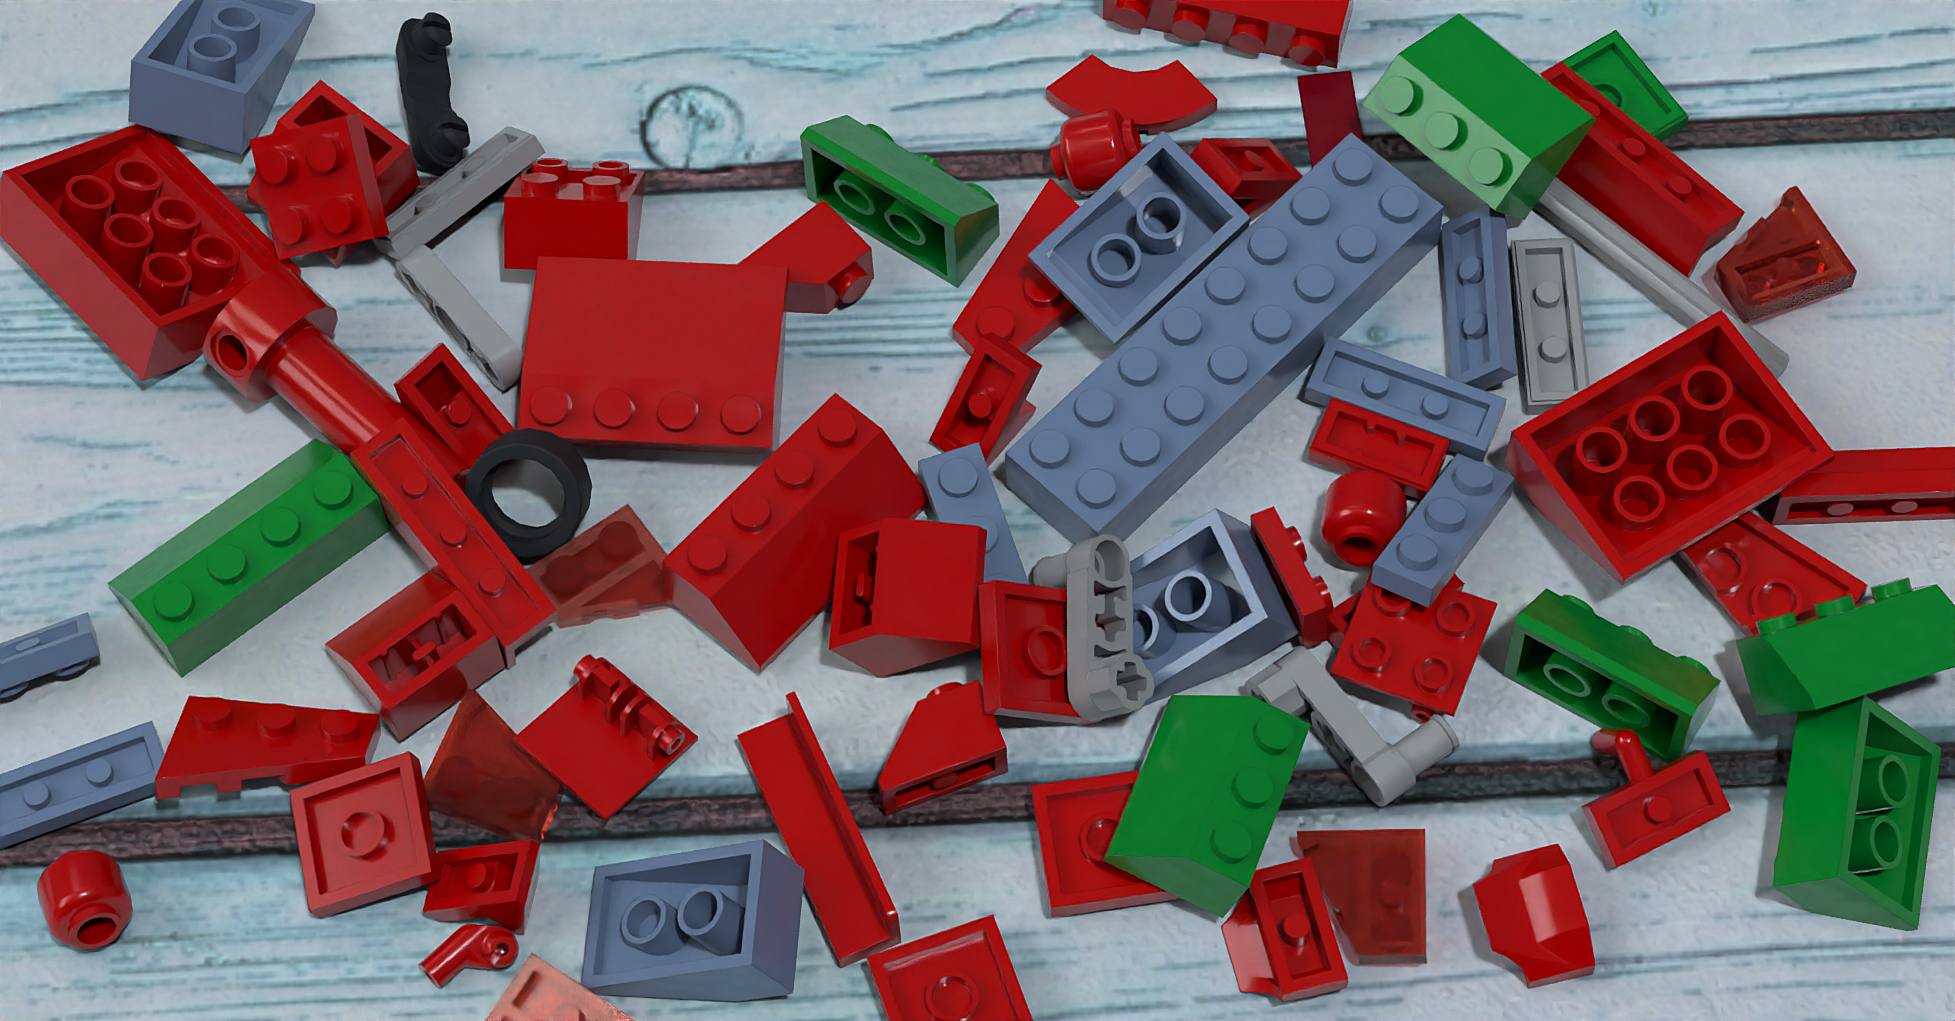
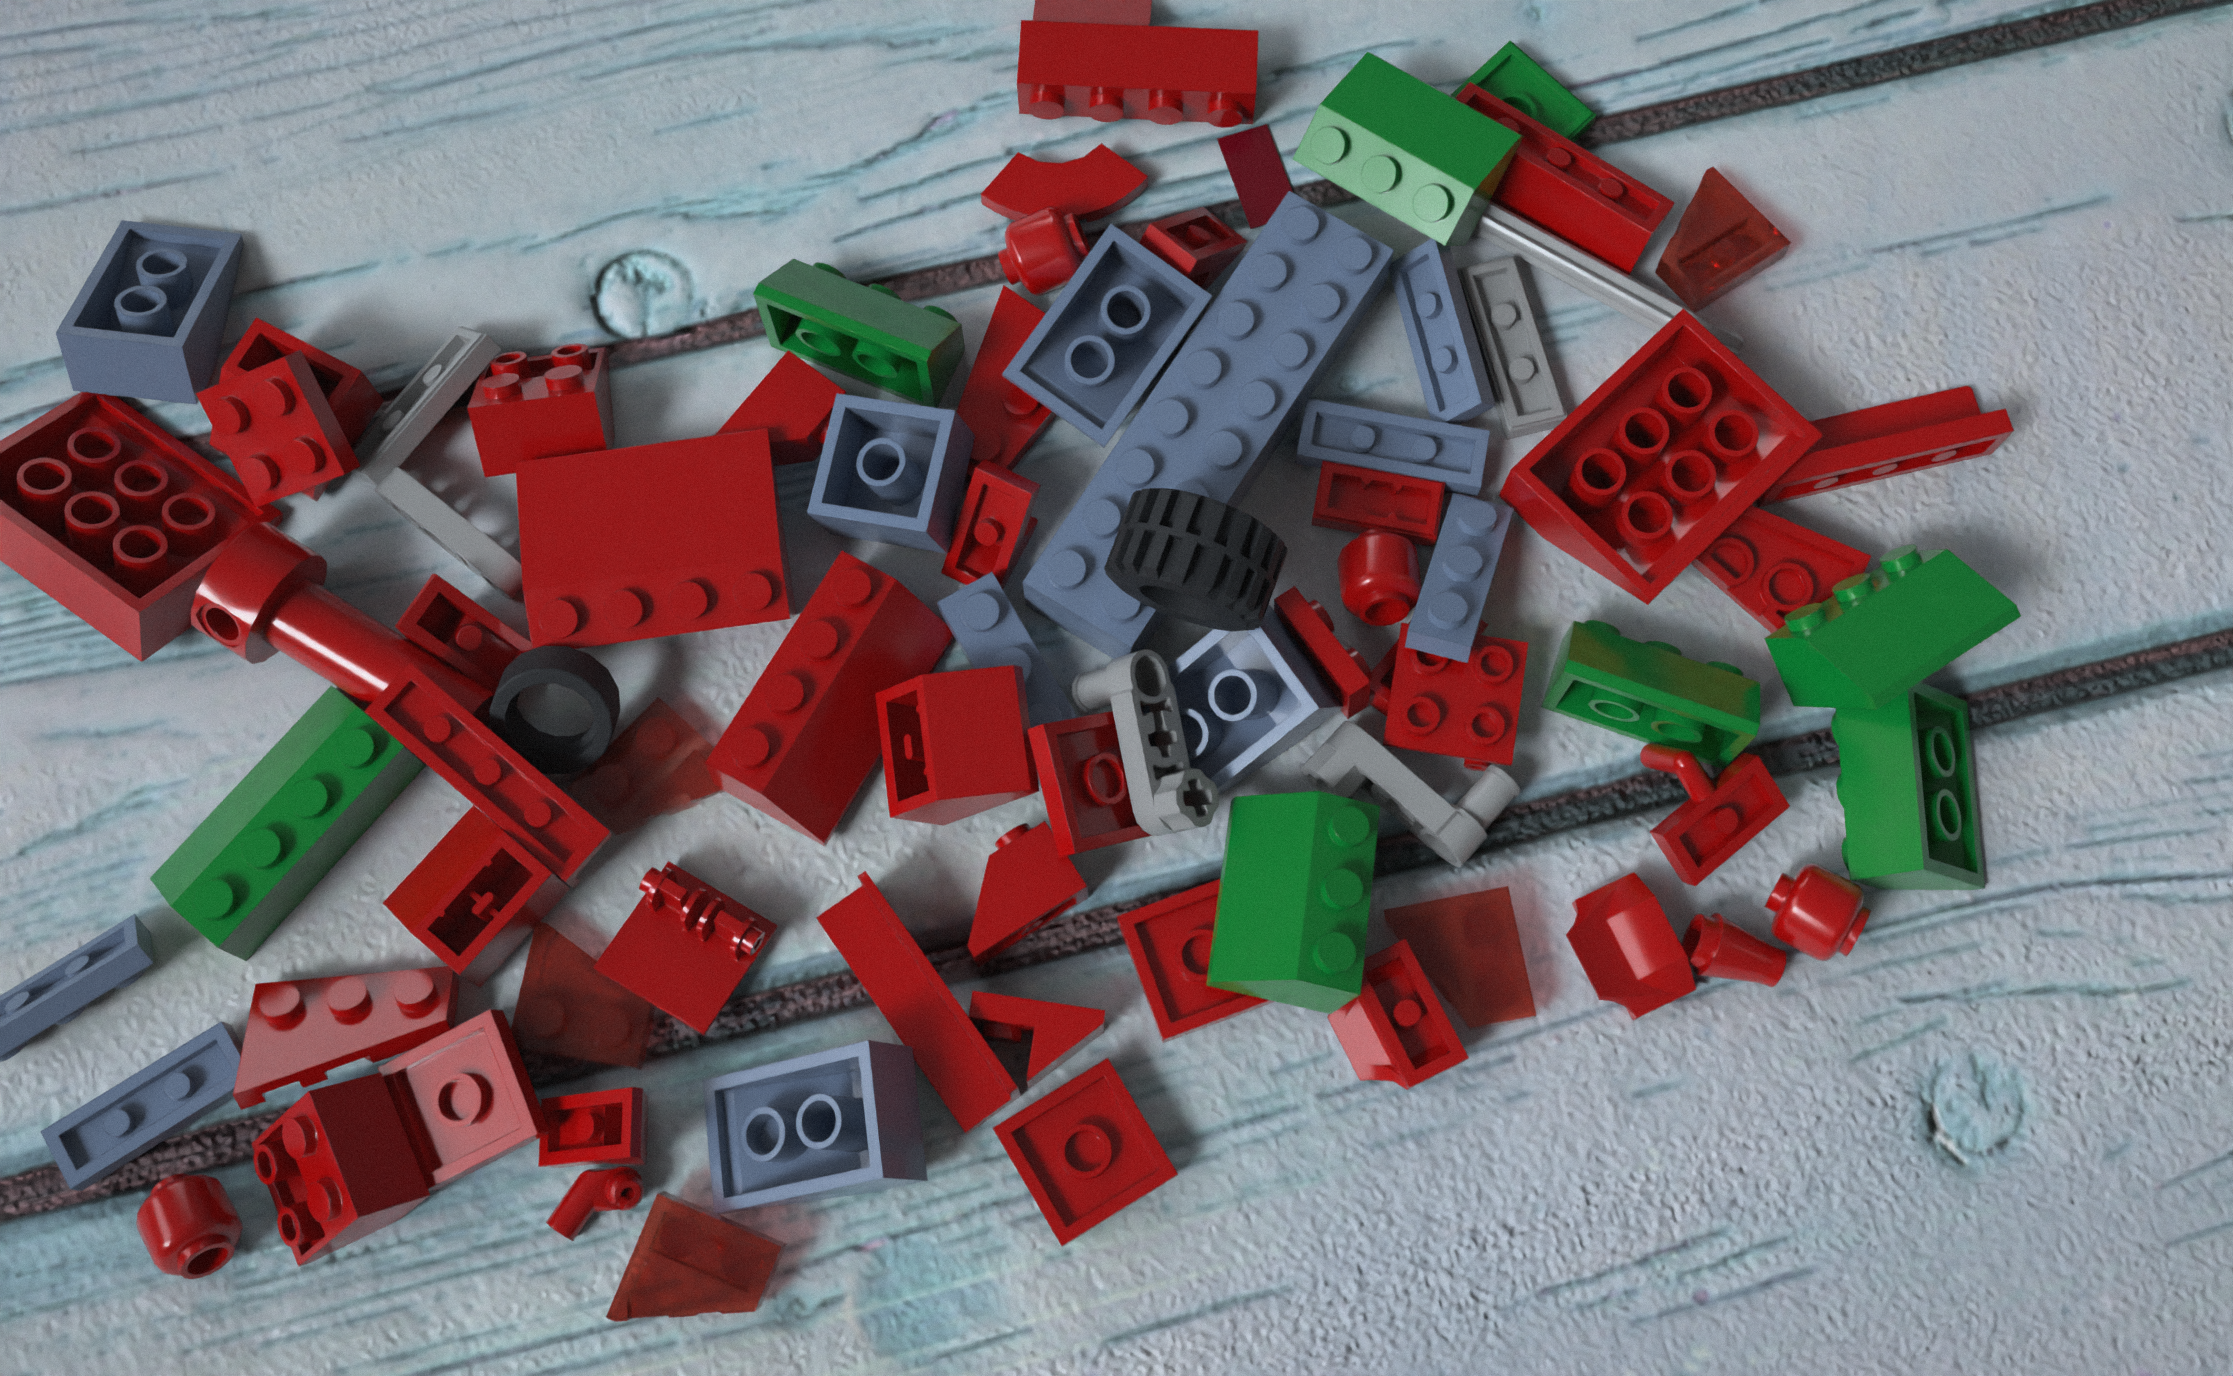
camera: 15 degrees left, 10 degrees up
(234, 873) = (338, 1167): none -> red slope
(425, 85) = (370, 306): black piece -> none
(899, 332) = (891, 473): none -> sand blue brick
(946, 878) = (1056, 1028): none -> red slope
(1172, 449) = (1196, 559): none -> black tyre
(1638, 936) = (1728, 951): none -> red cone
(1733, 912) = (1817, 912): none -> red head

